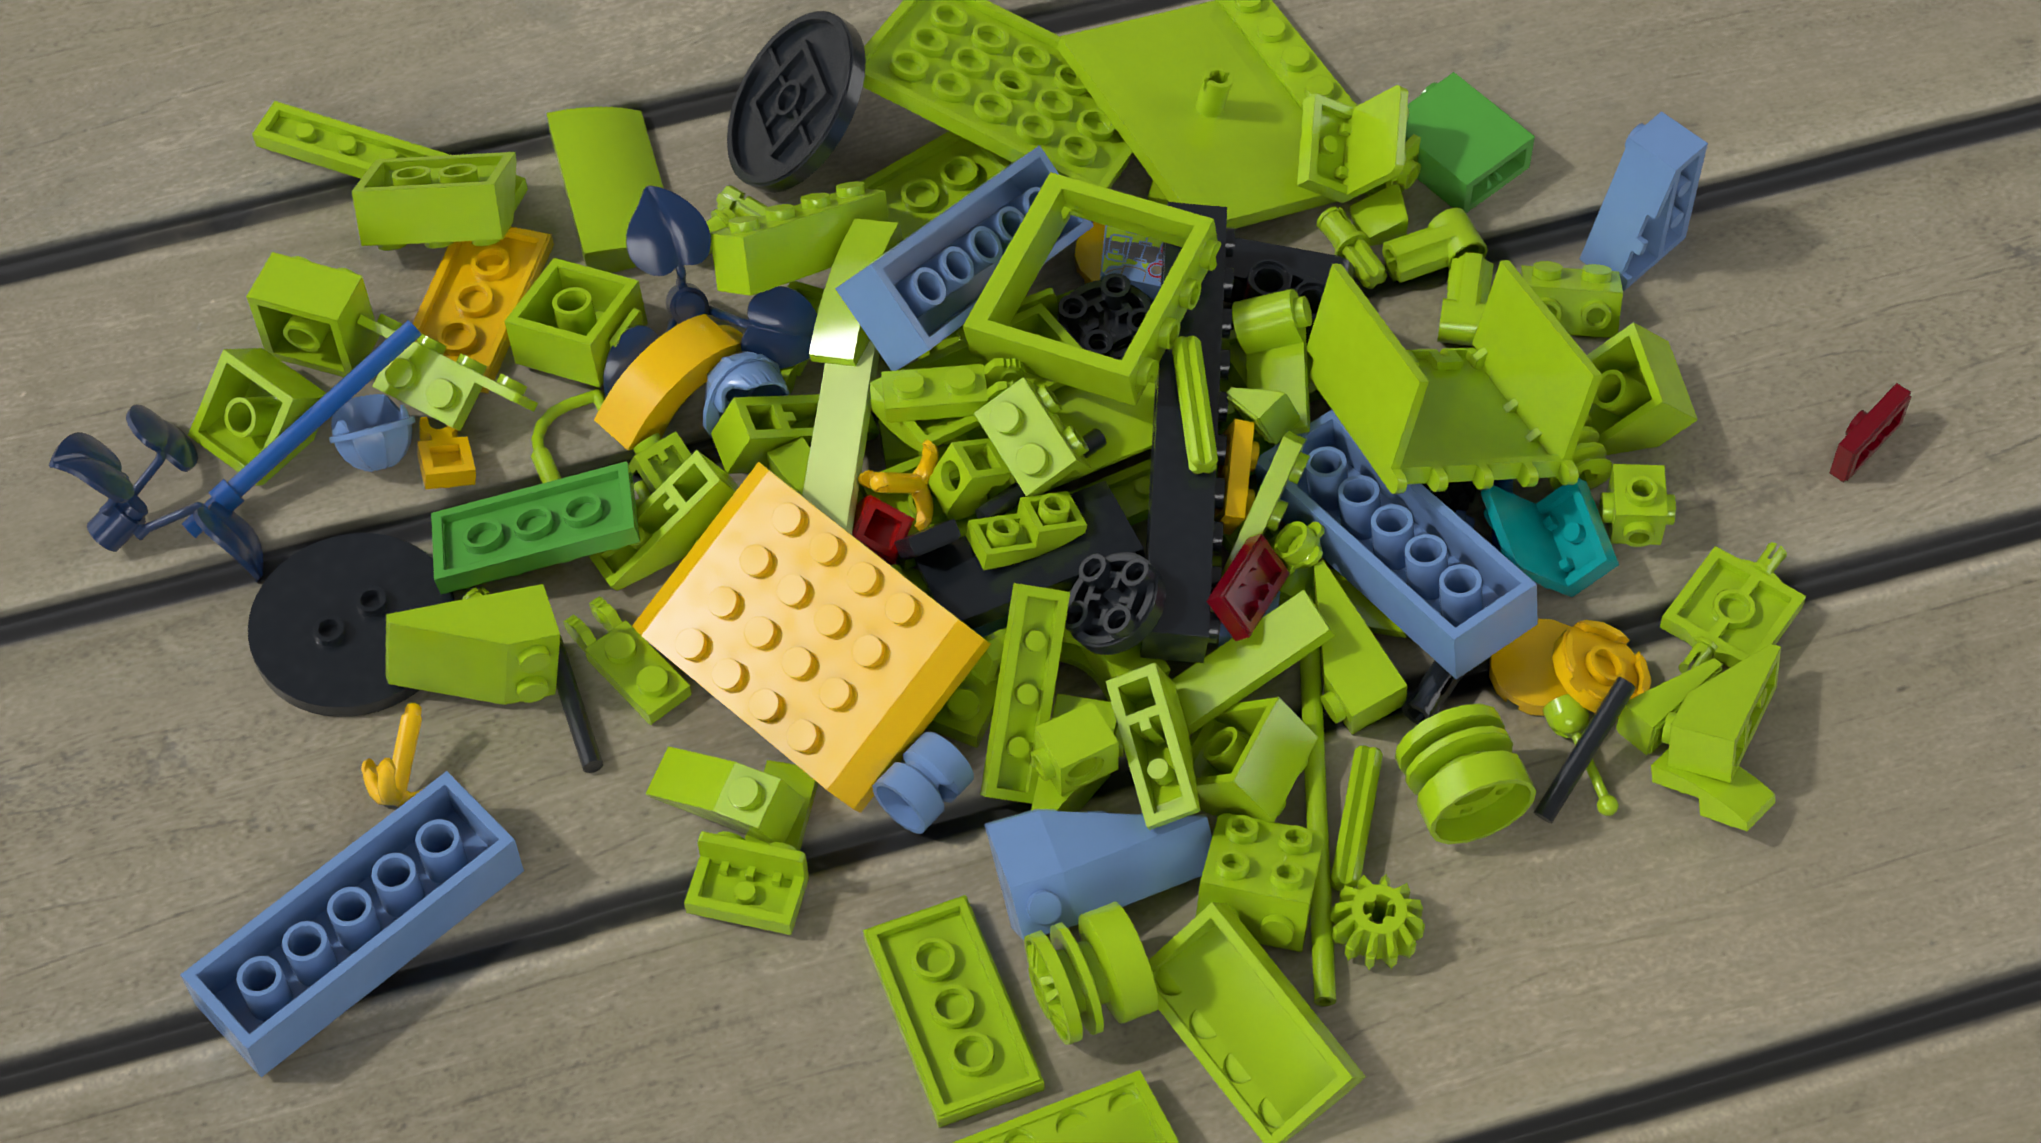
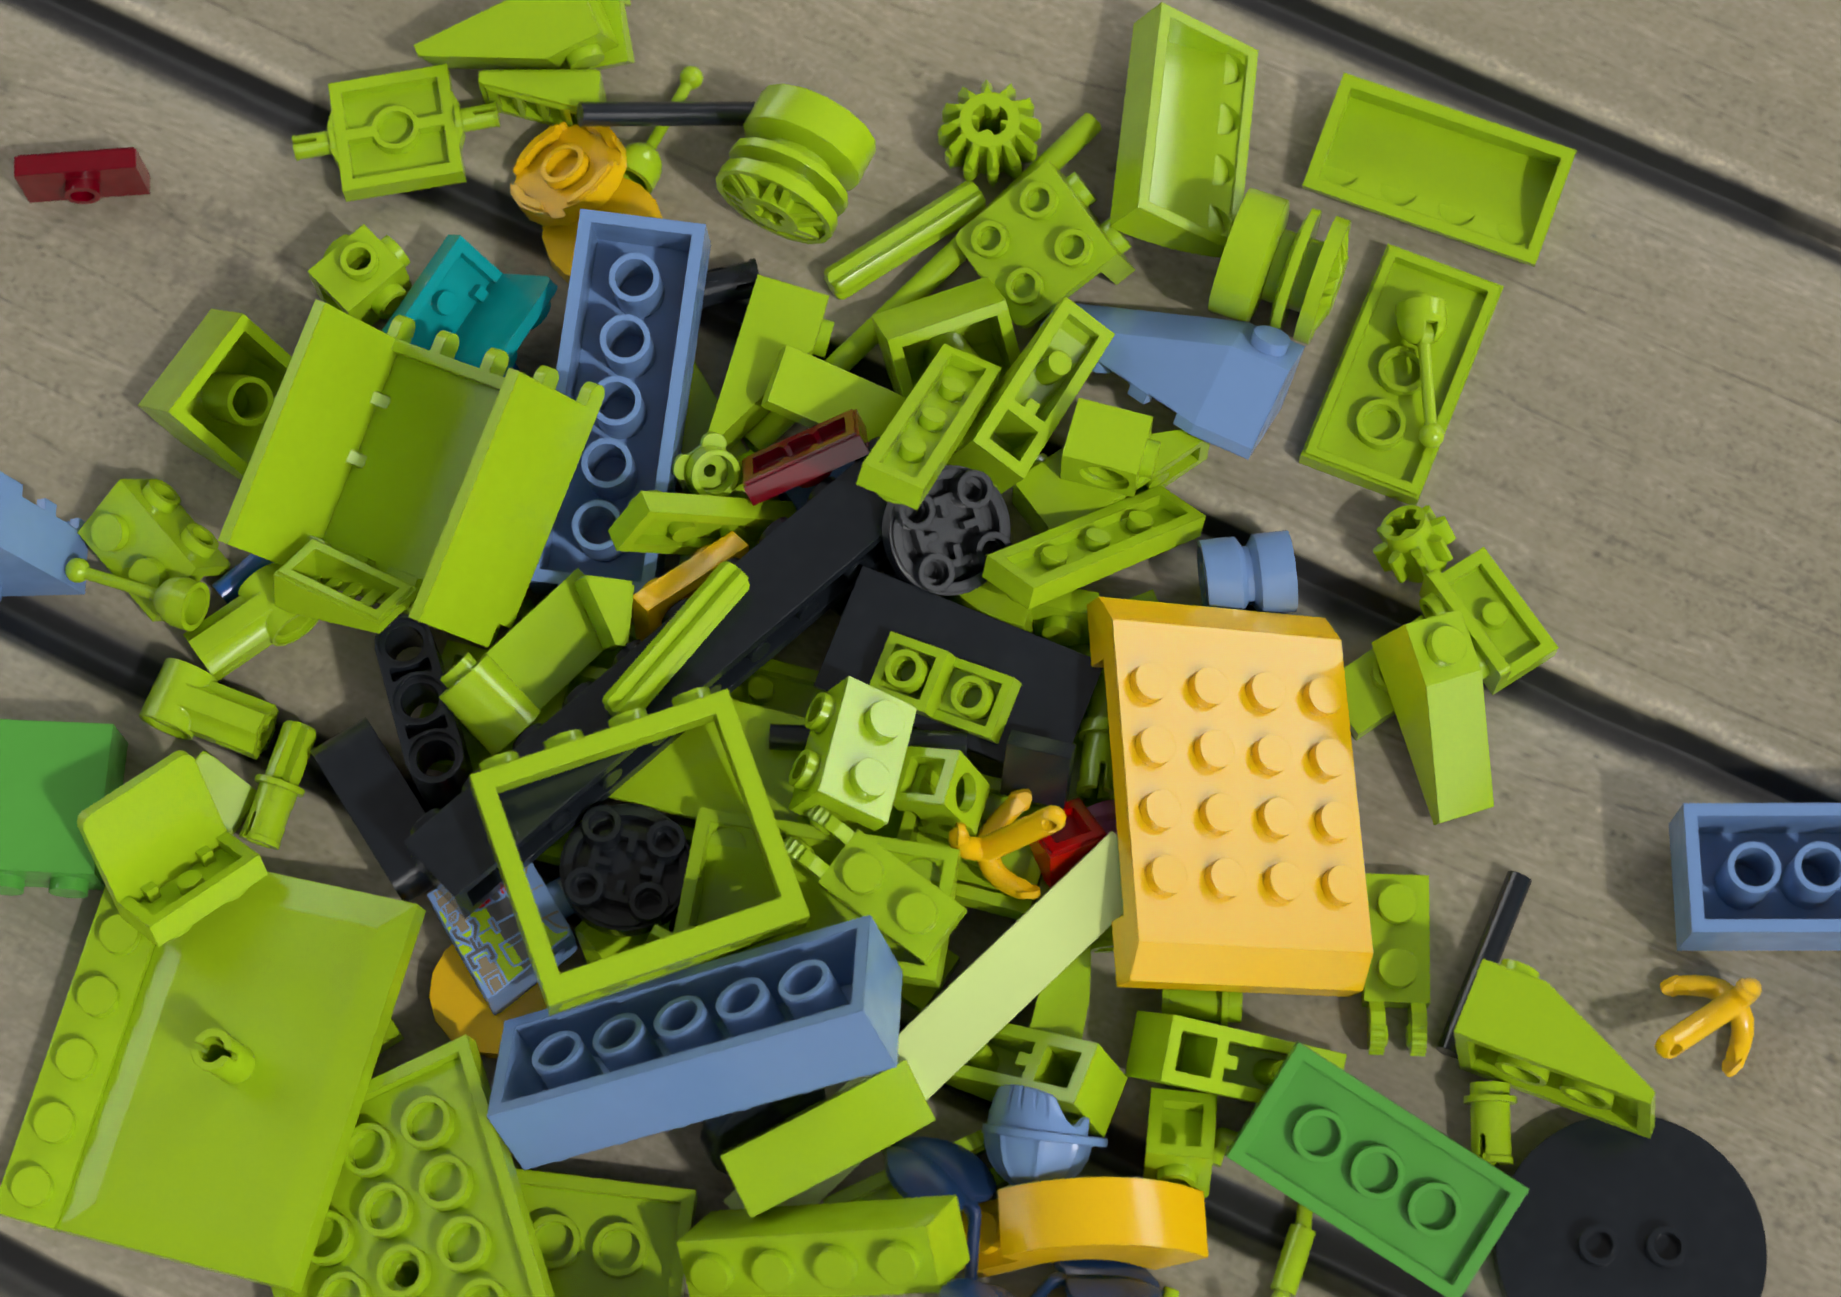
camera: 135 degrees left, 15 degrees up
(836, 889) = (1413, 543): none -> lime gear
(963, 1026) = (1422, 323): none -> lime hinge
(1184, 635) = (928, 427): none -> lime plate
(1458, 315) = (314, 574): none -> lime slope
(1522, 261) = (178, 600): none -> lime hinge

